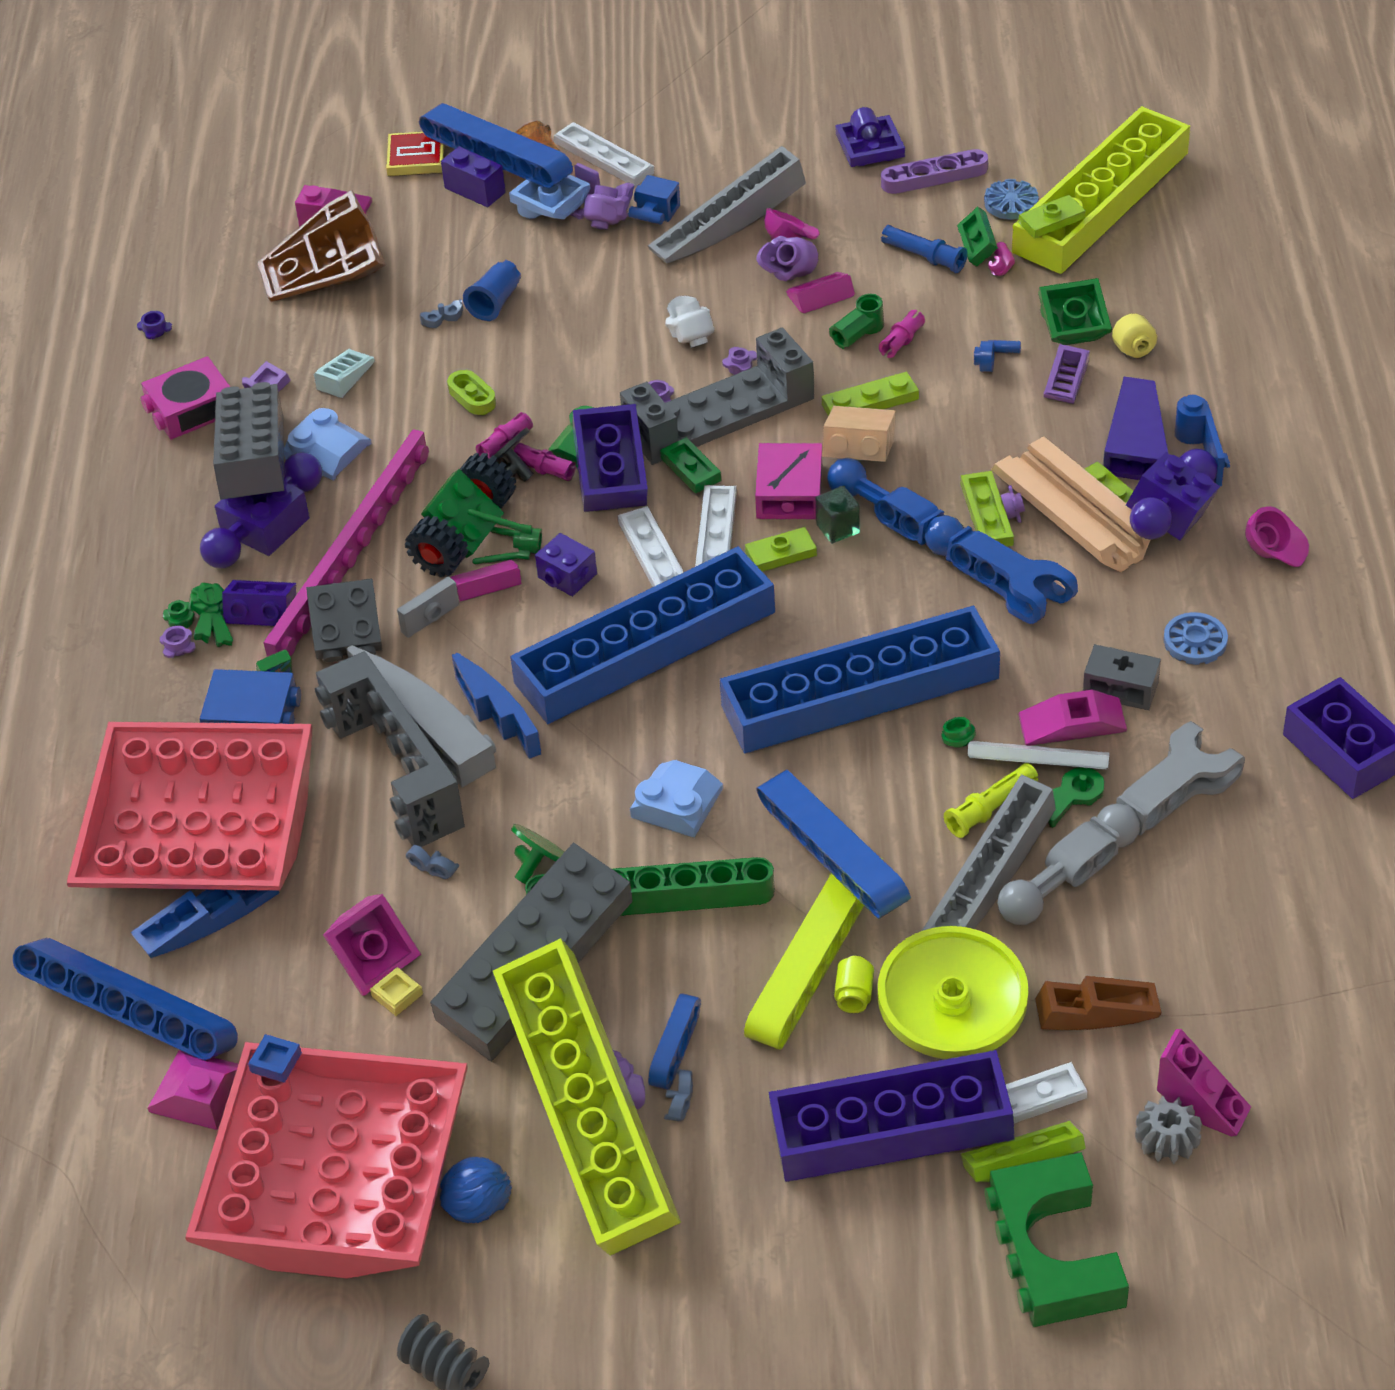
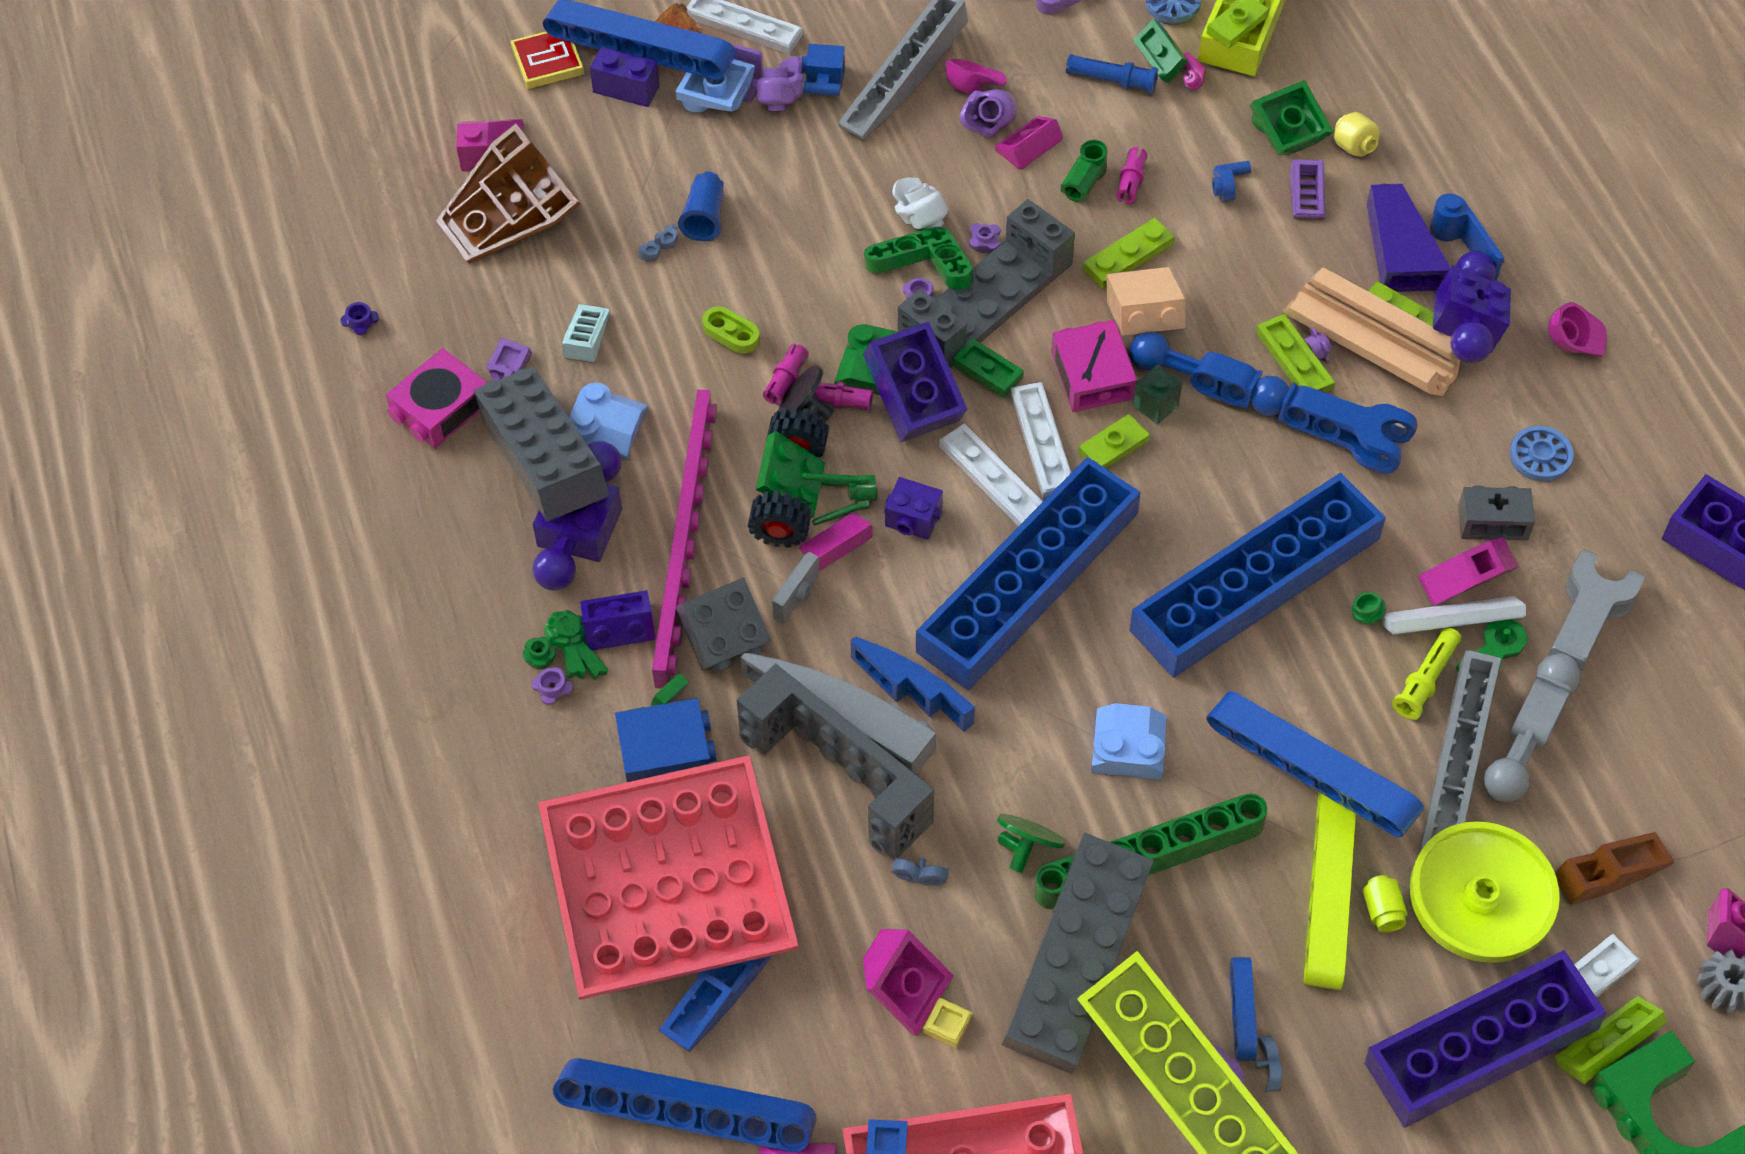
camera: 20 degrees left, 10 degrees up
(688, 357) = (926, 244): none -> green beam

